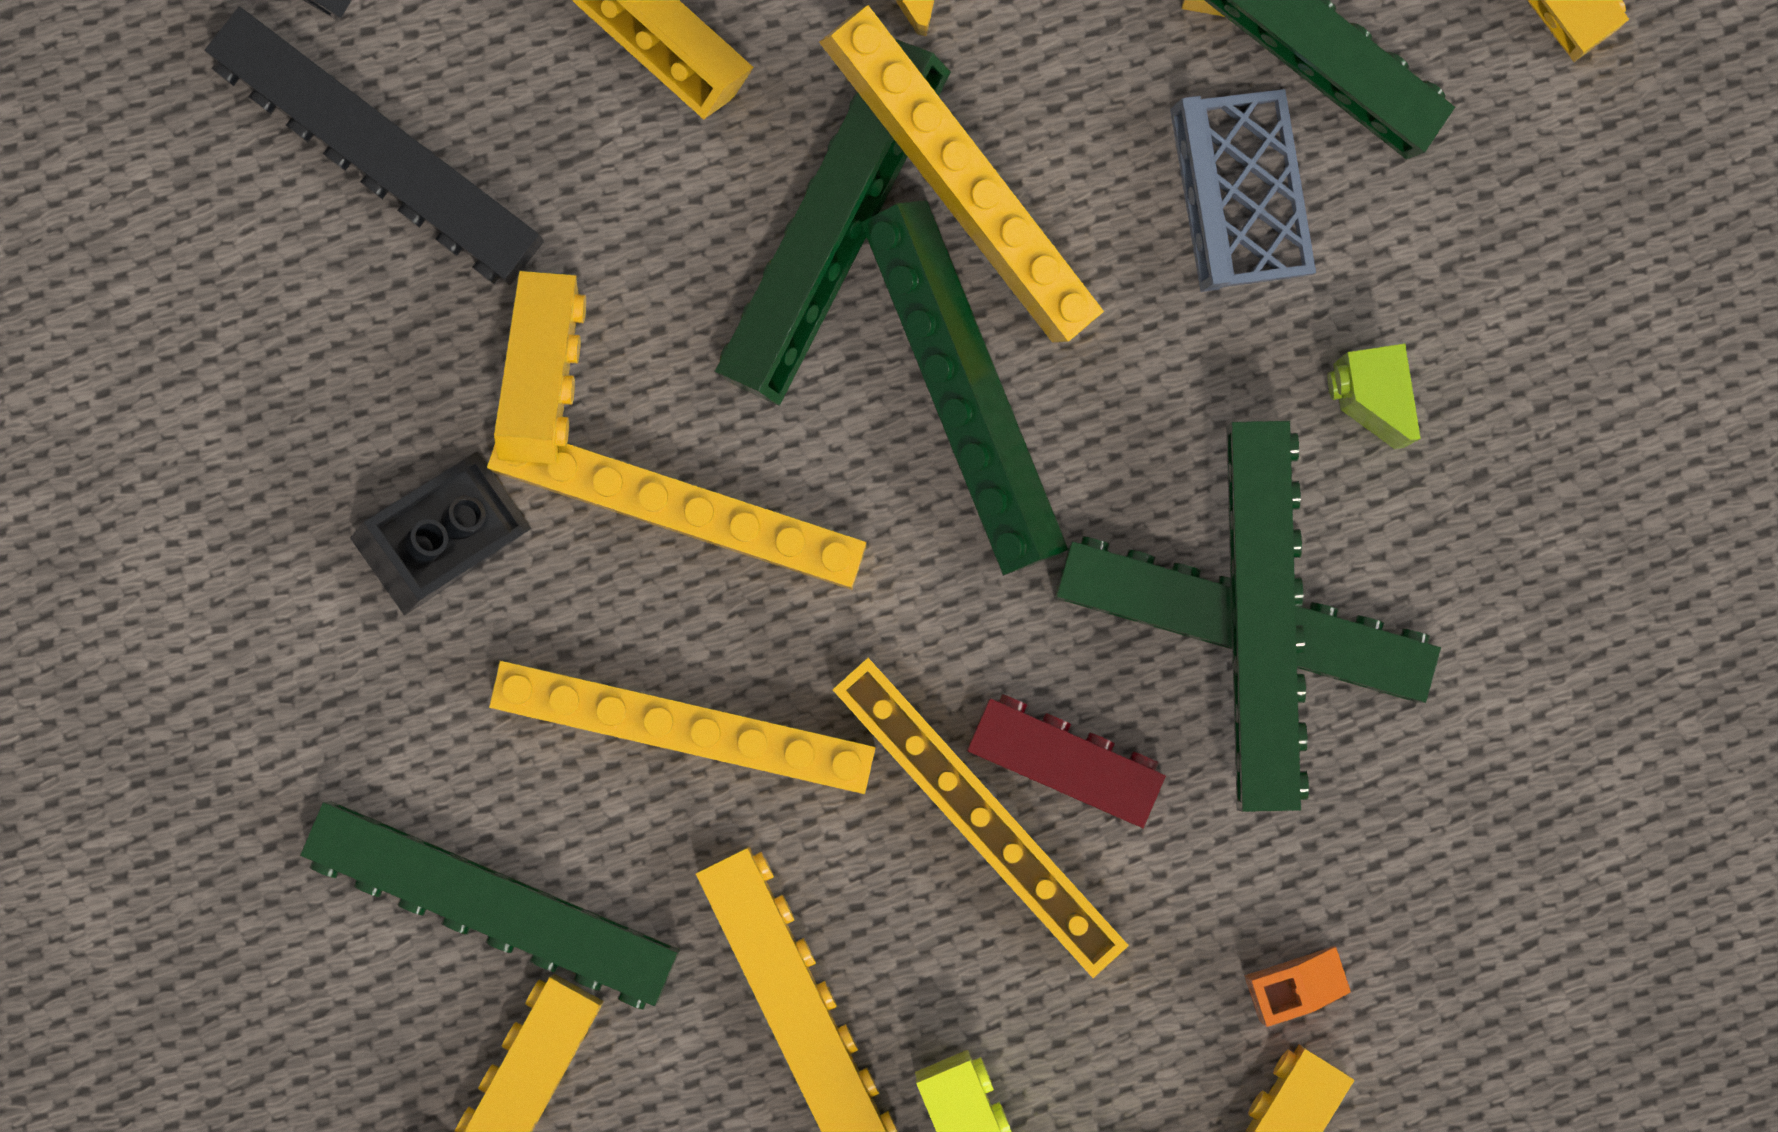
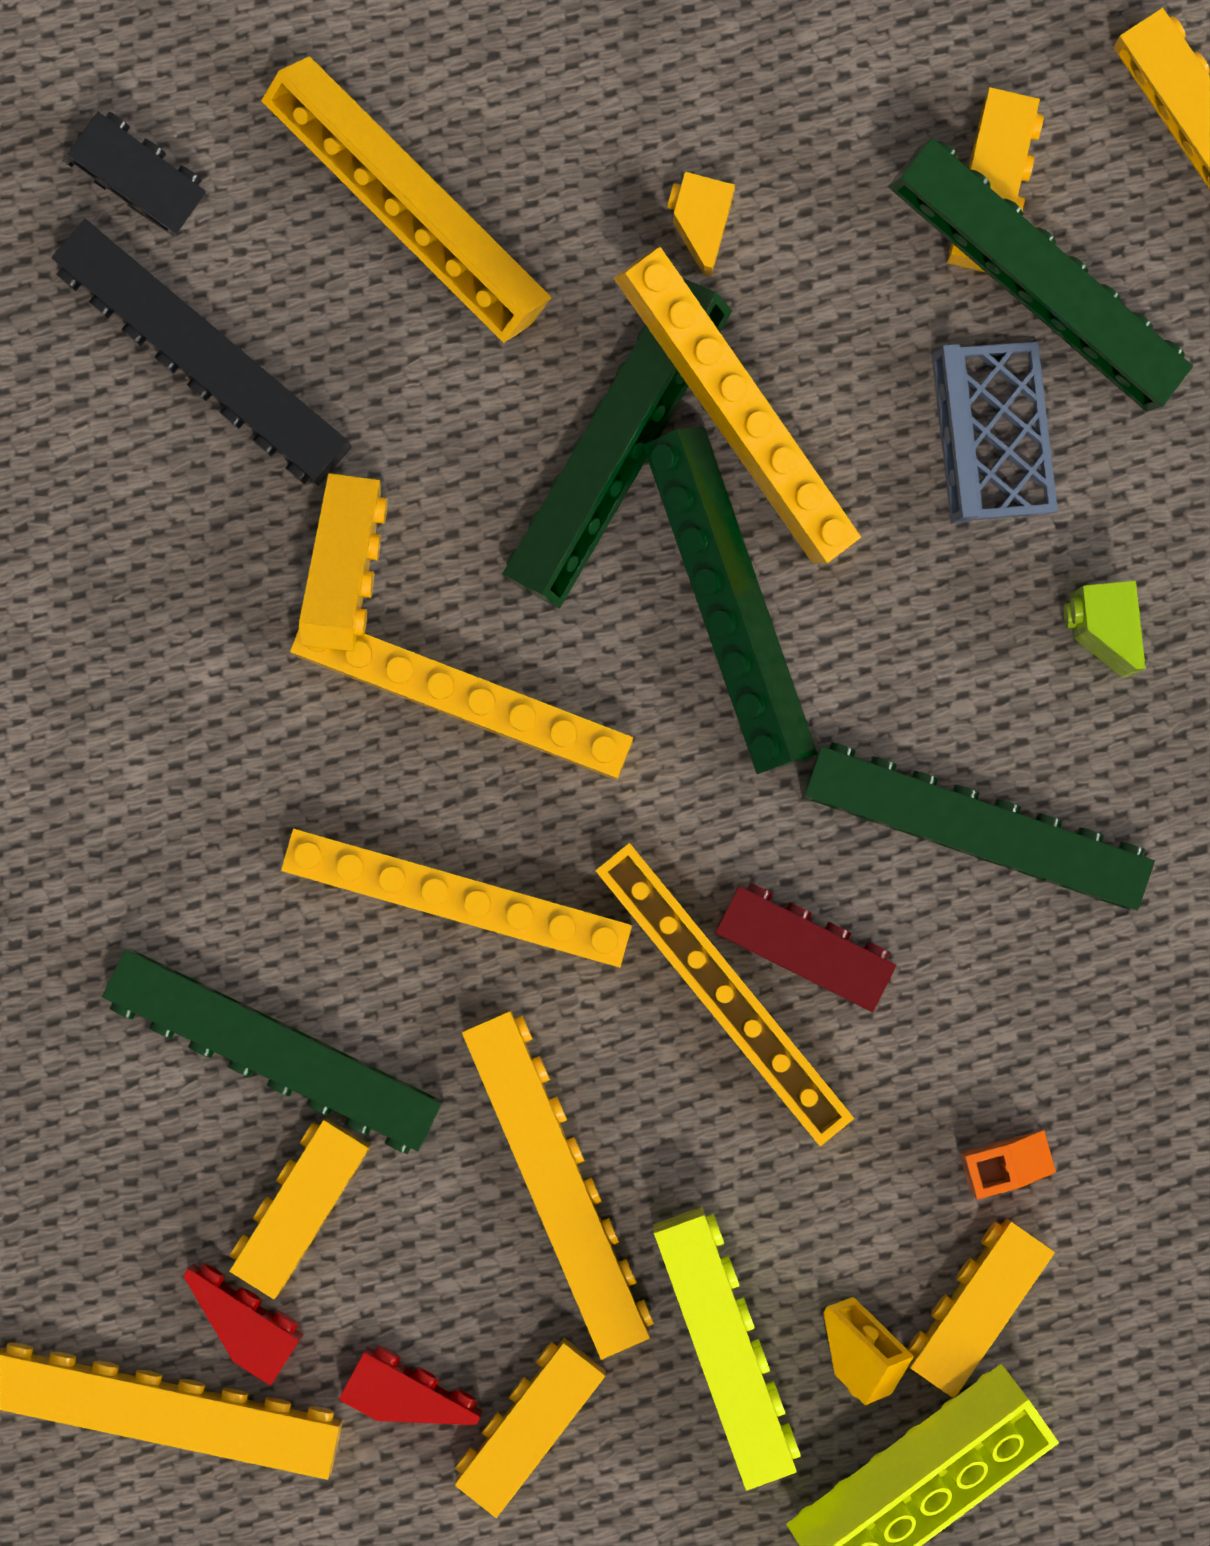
camera: 10 degrees right, 0 degrees up
(439, 532) = (243, 709): black slope -> none
(1265, 616) = (994, 823): dark green brick -> none

